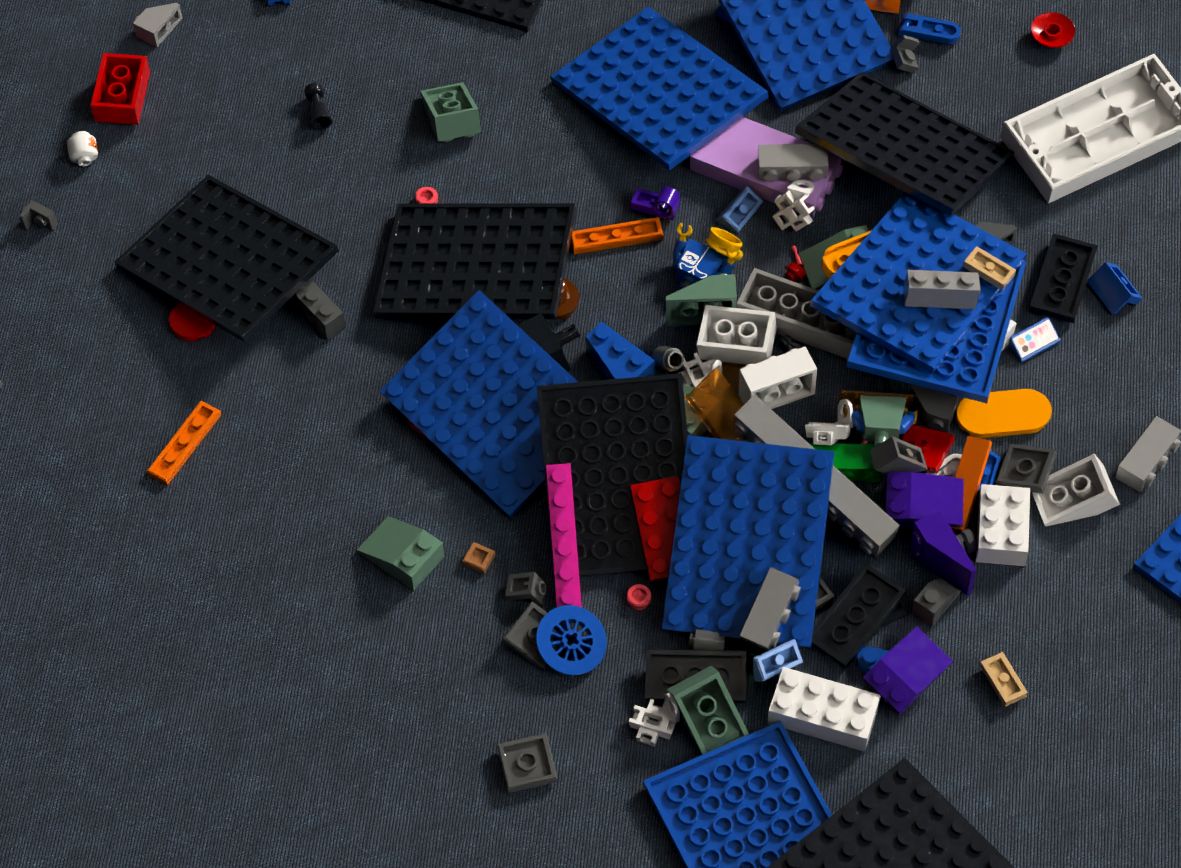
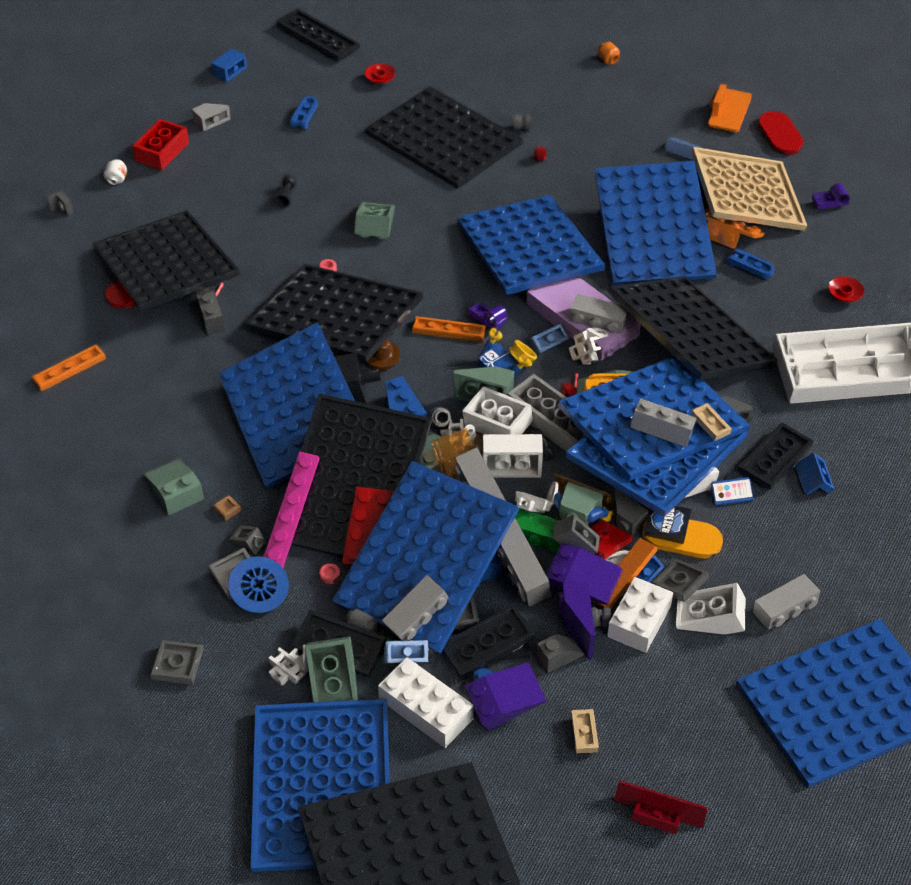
camera: 20 degrees right, 10 degrees down
(903, 54) = (723, 273): dark grey bracket -> none
(982, 414) = (671, 527): none -> tile
(1117, 736) = (659, 808): none -> dark red bracket

